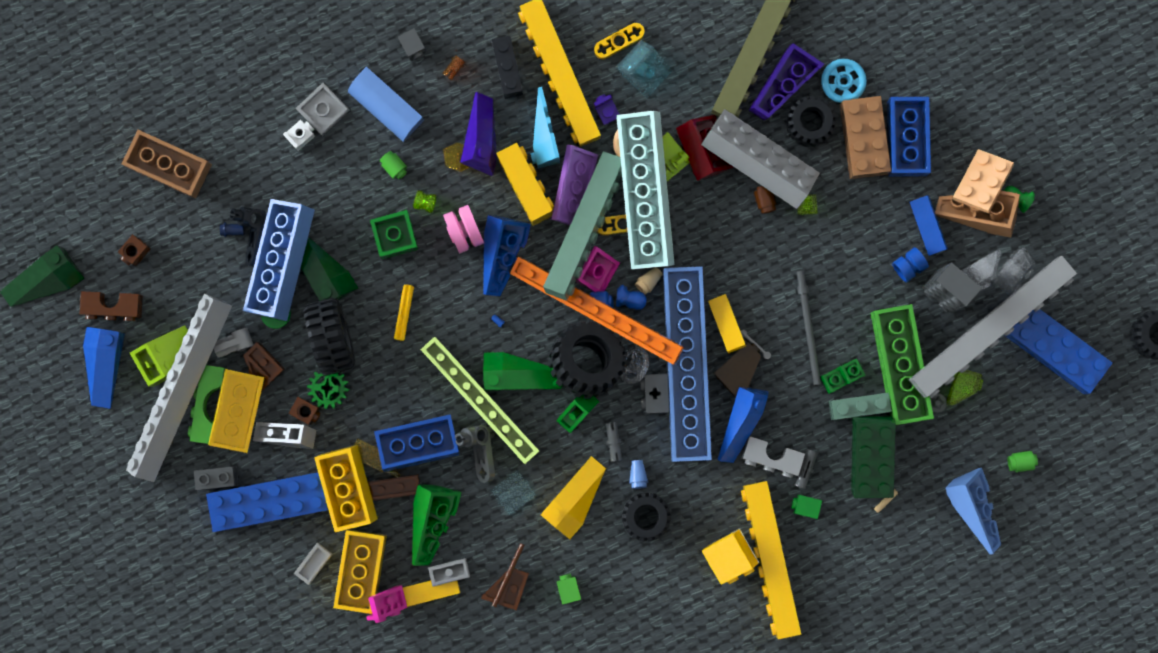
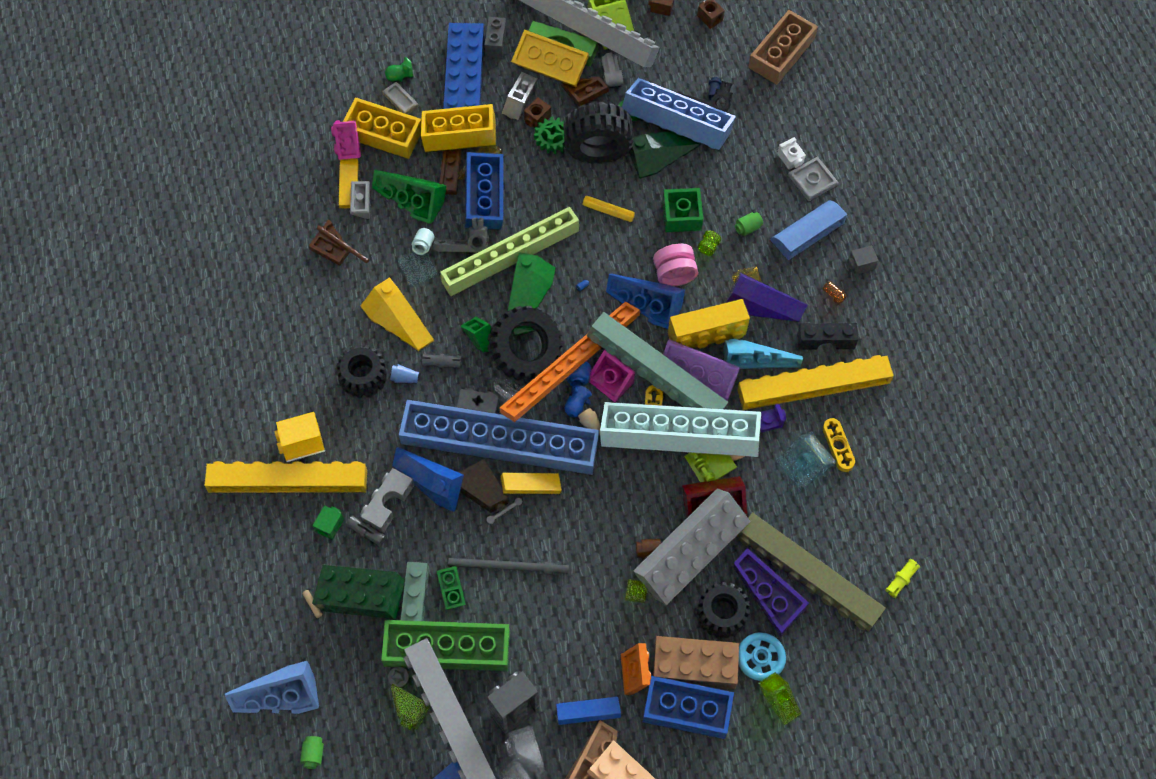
camera: 100 degrees right, 20 degrees down
(282, 573) = (399, 72): none -> green animal
(486, 493) = (422, 241): none -> light aqua brick
(568, 588) = (314, 293): bright green brick -> none
(878, 58) = (780, 697): none -> clear neon green slope
(886, 189) = (635, 669): none -> orange plate
(913, 262) = (550, 681): blue wheel -> none

